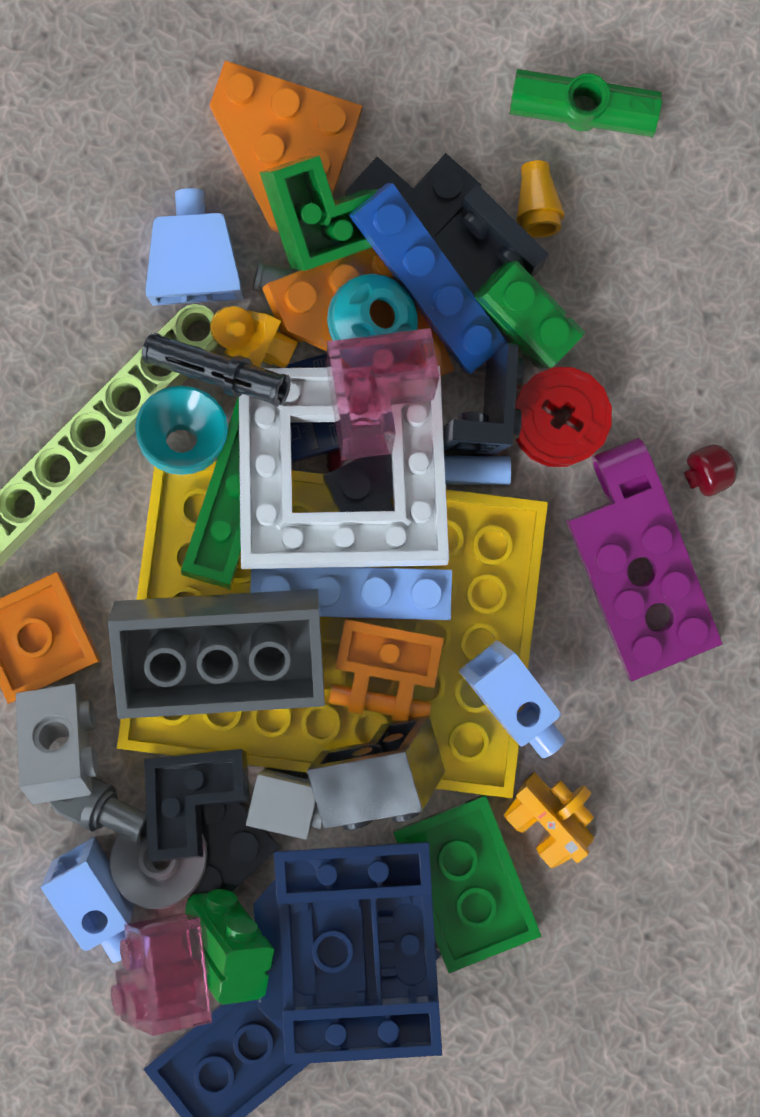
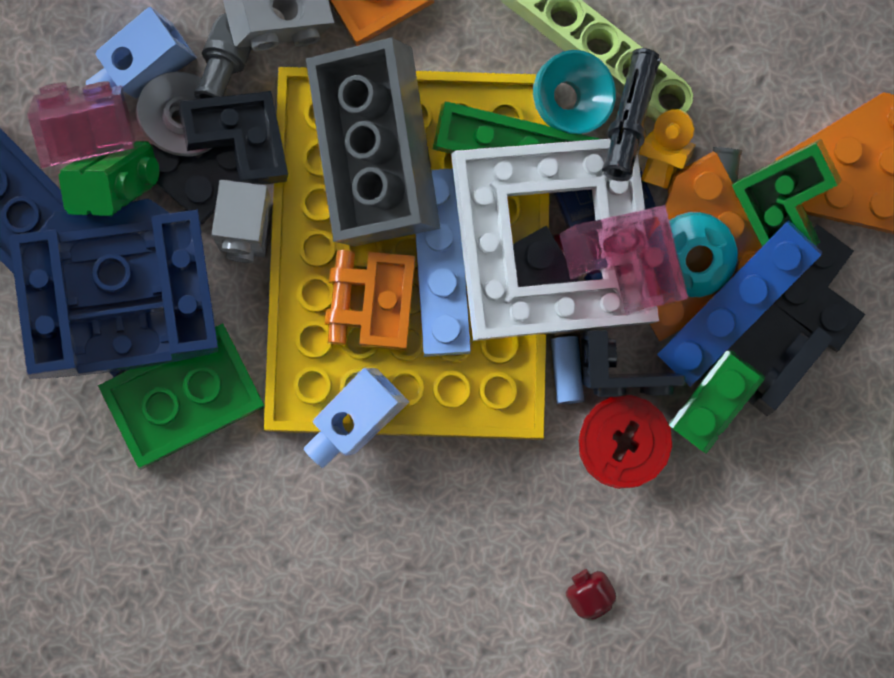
camera: 80 degrees right, 5 degrees down
(192, 255) = (739, 90): light blue torso -> none
(378, 778) = (273, 296): brick -> none
(539, 202) = (825, 406): light orange cone -> none
(559, 813) = (251, 474): light orange hips -> none
(631, 527) = (528, 525): magenta hinge -> none

